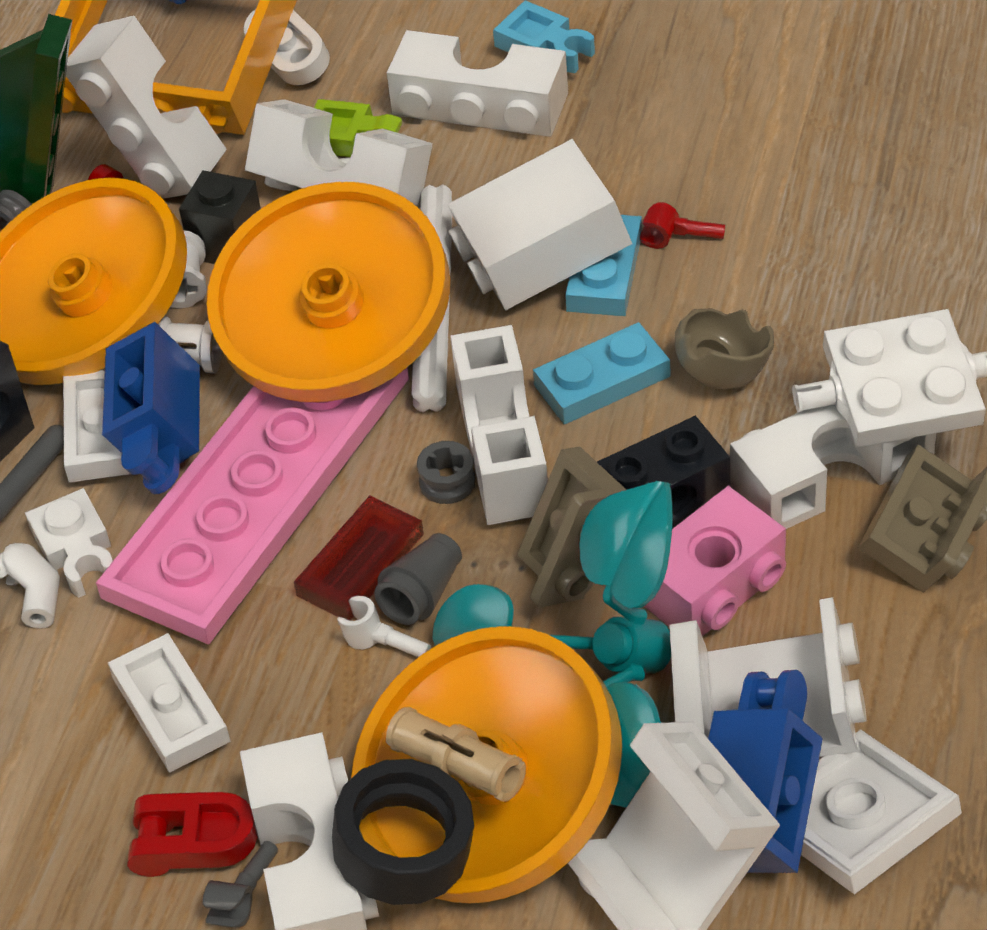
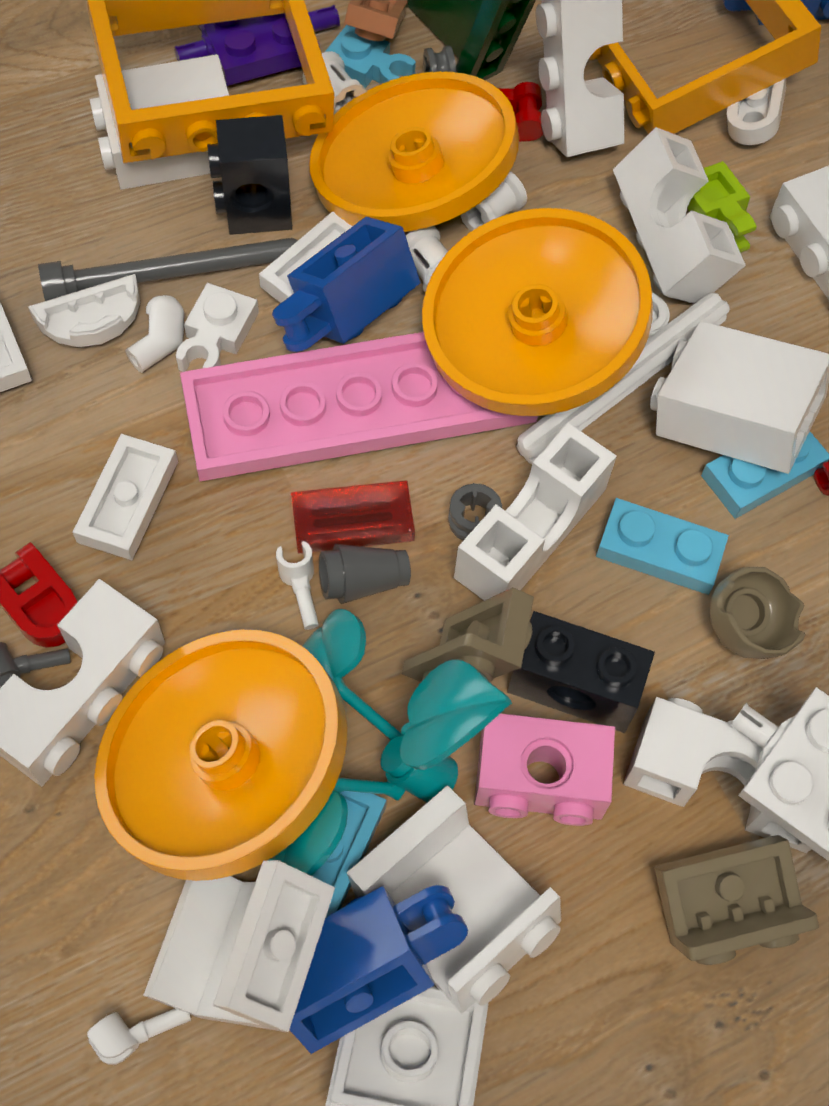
camera: 40 degrees right, 15 degrees up
(218, 208) = (557, 181): pearl dark grey brick -> none
(404, 878) = (82, 697): black tyre -> none
(456, 753) = (192, 730): tan pin -> none

